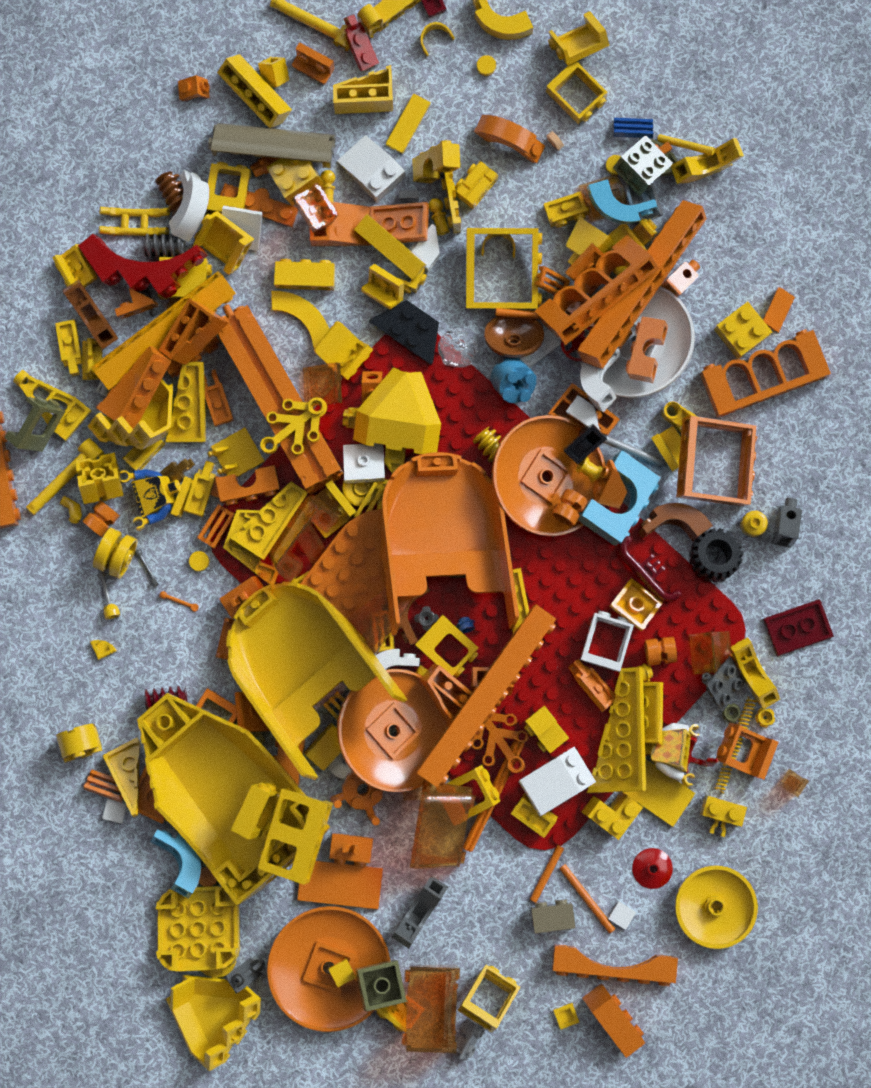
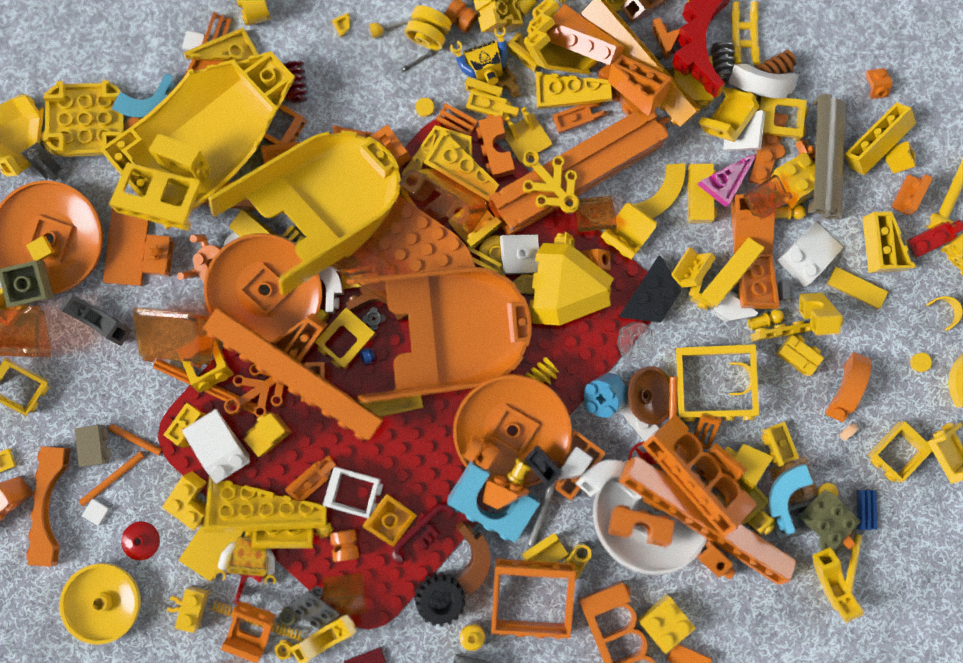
camera: 90 degrees right, 0 degrees up
(194, 607) = (381, 105): orange hinge -> none
(295, 249) = (726, 182): none -> dark pink wing

